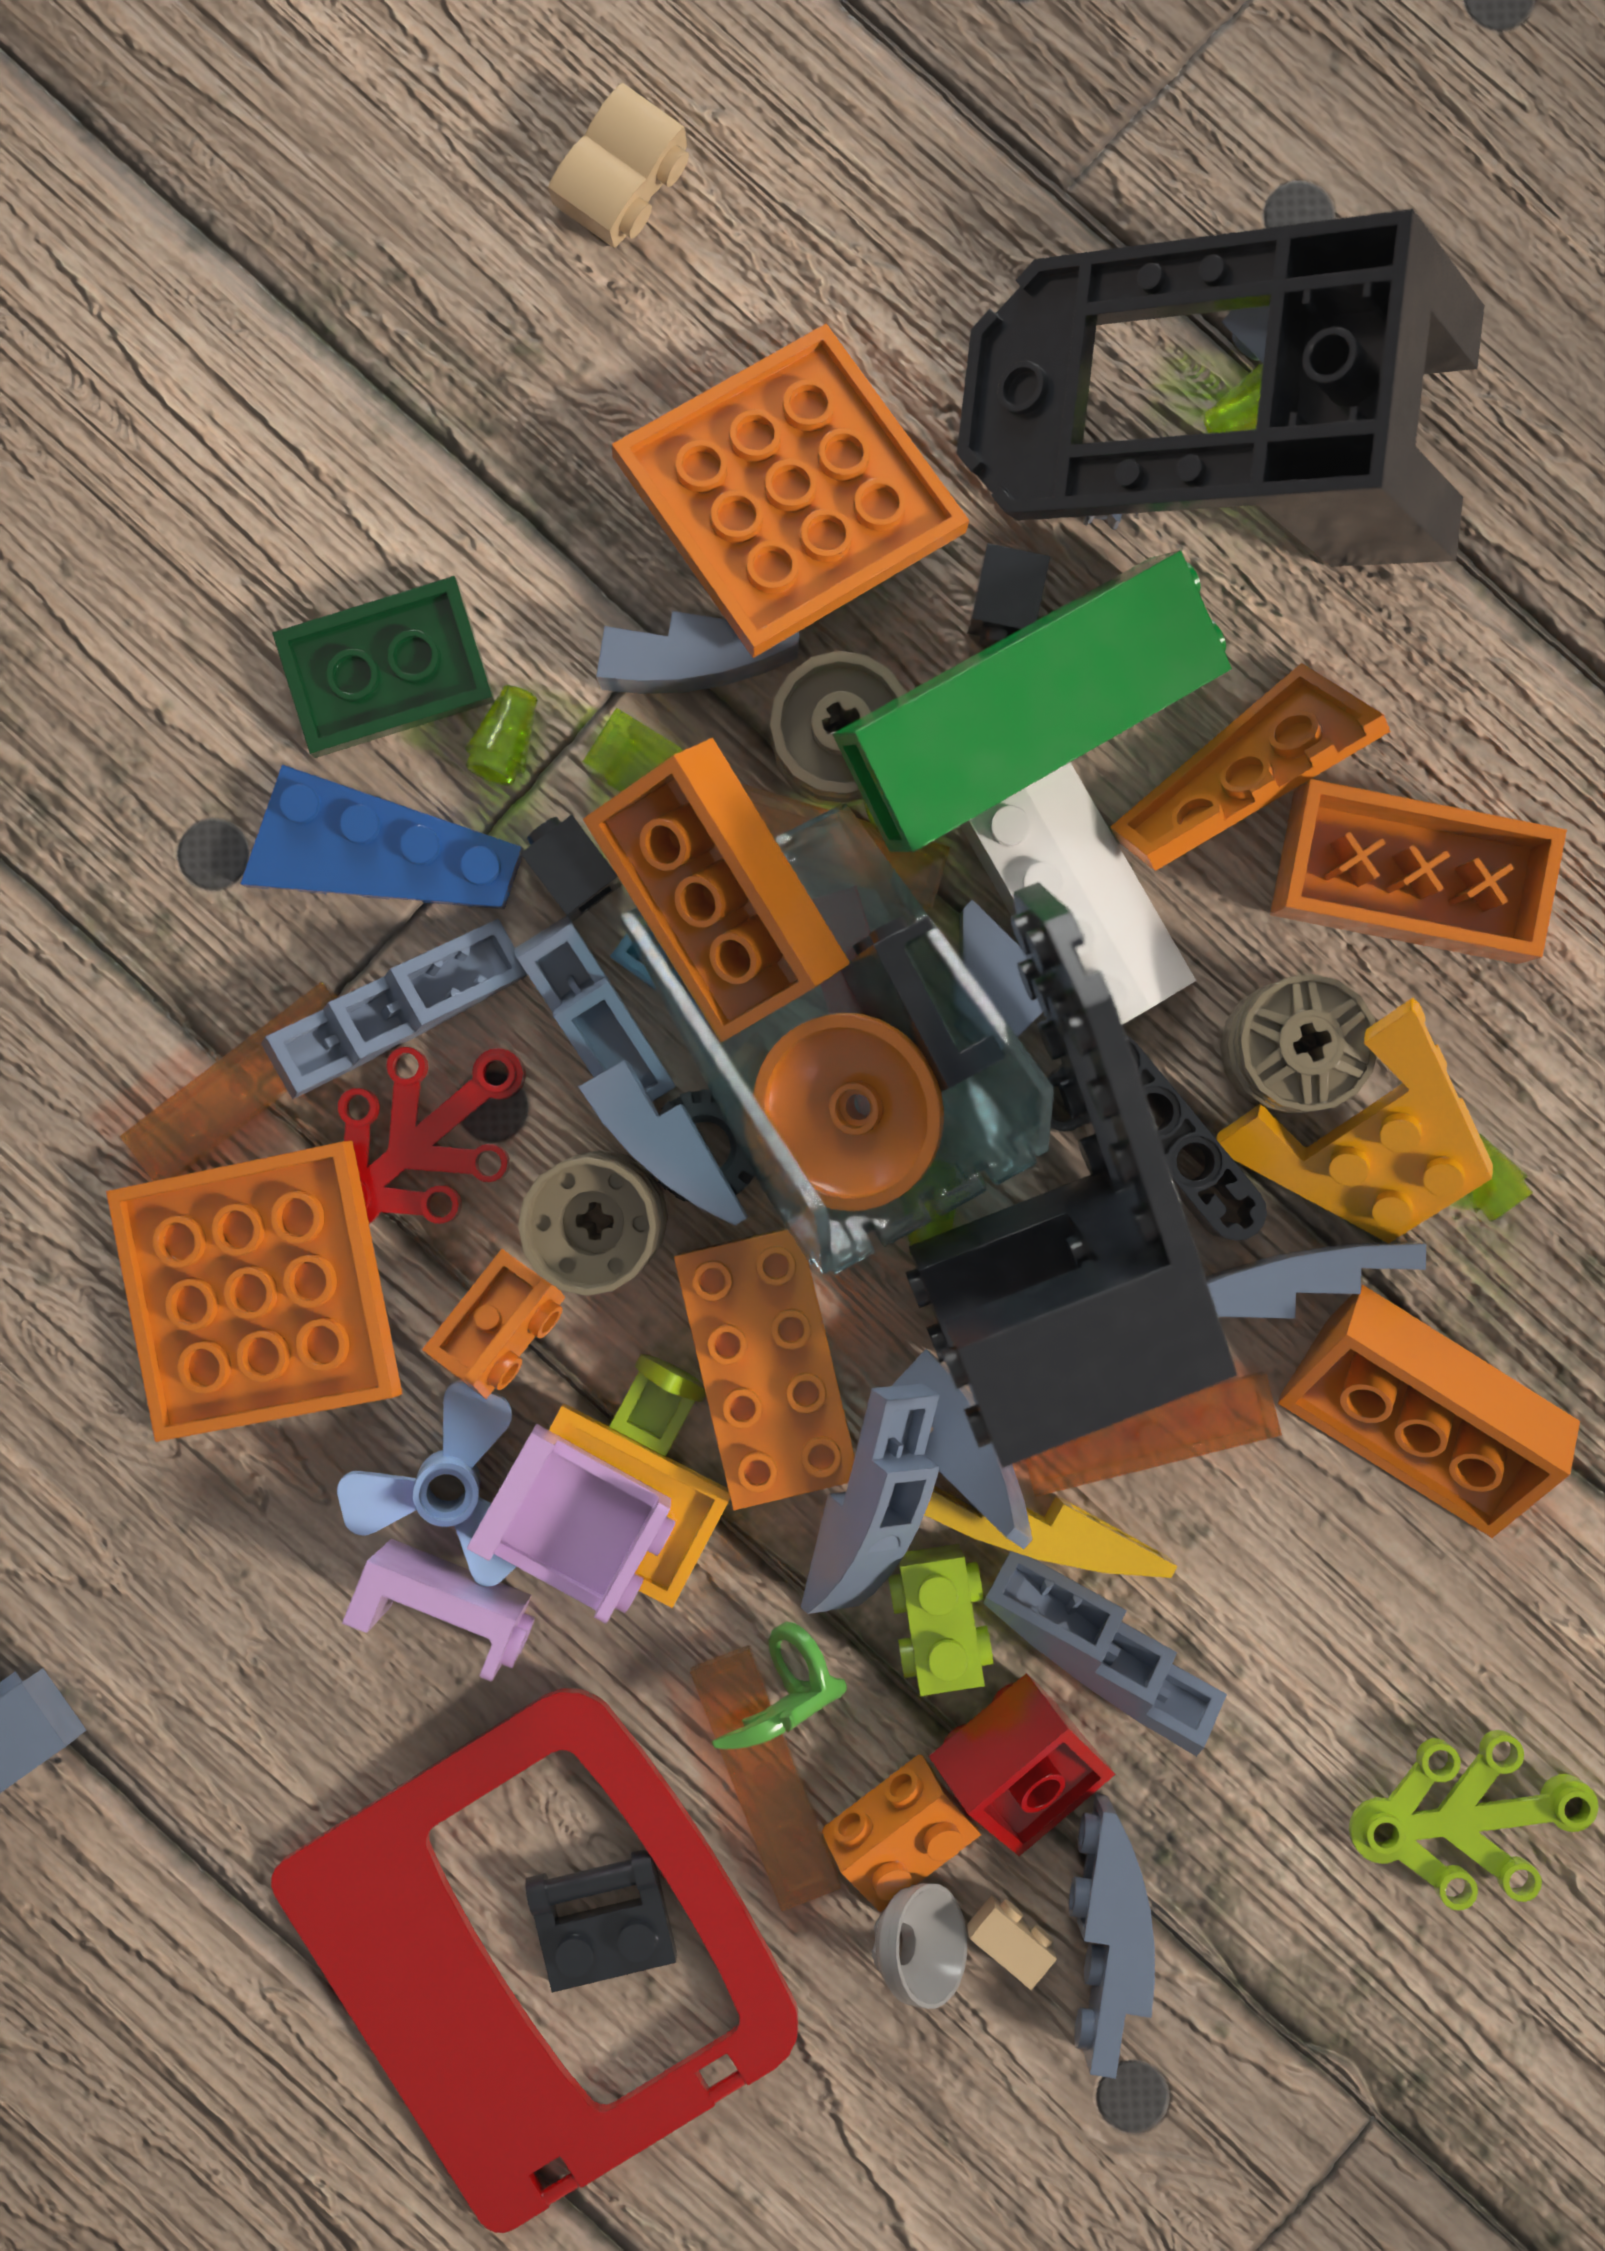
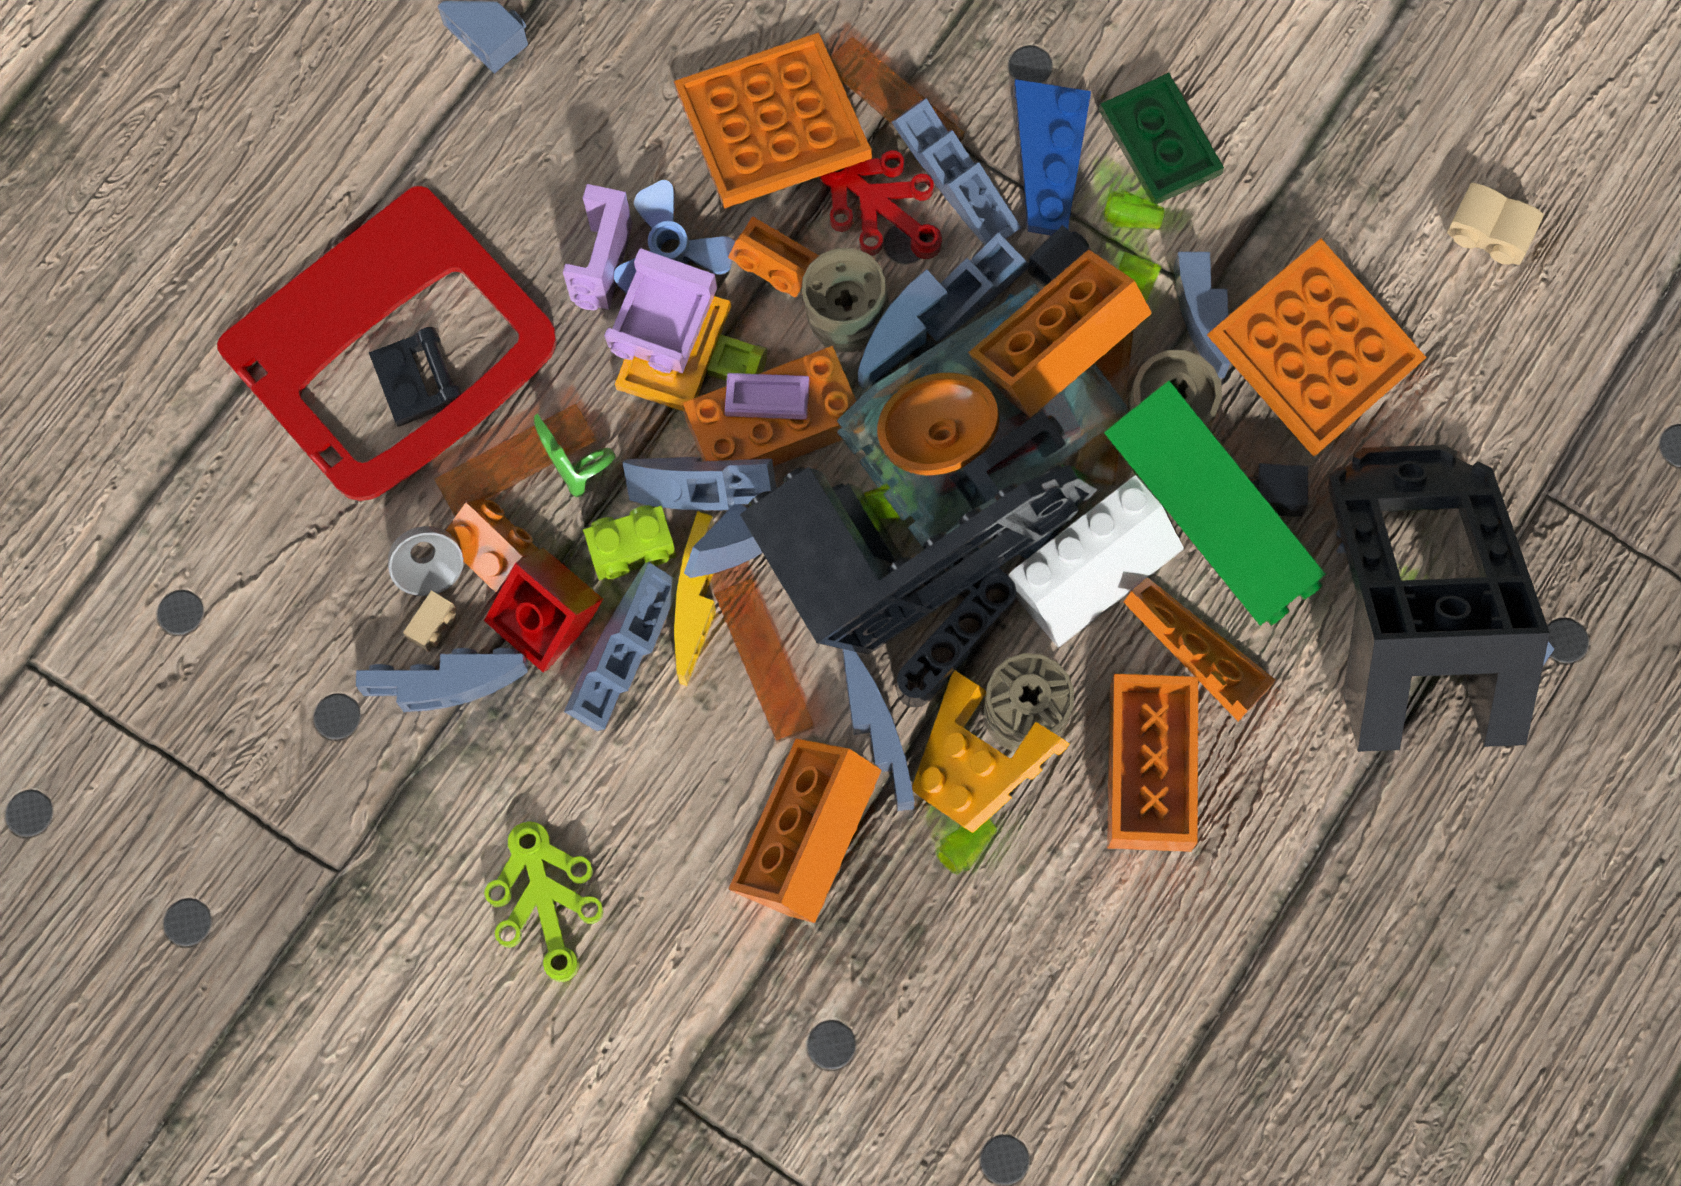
camera: 85 degrees right, 15 degrees down
(751, 1376) = (767, 396): none -> lavender tile

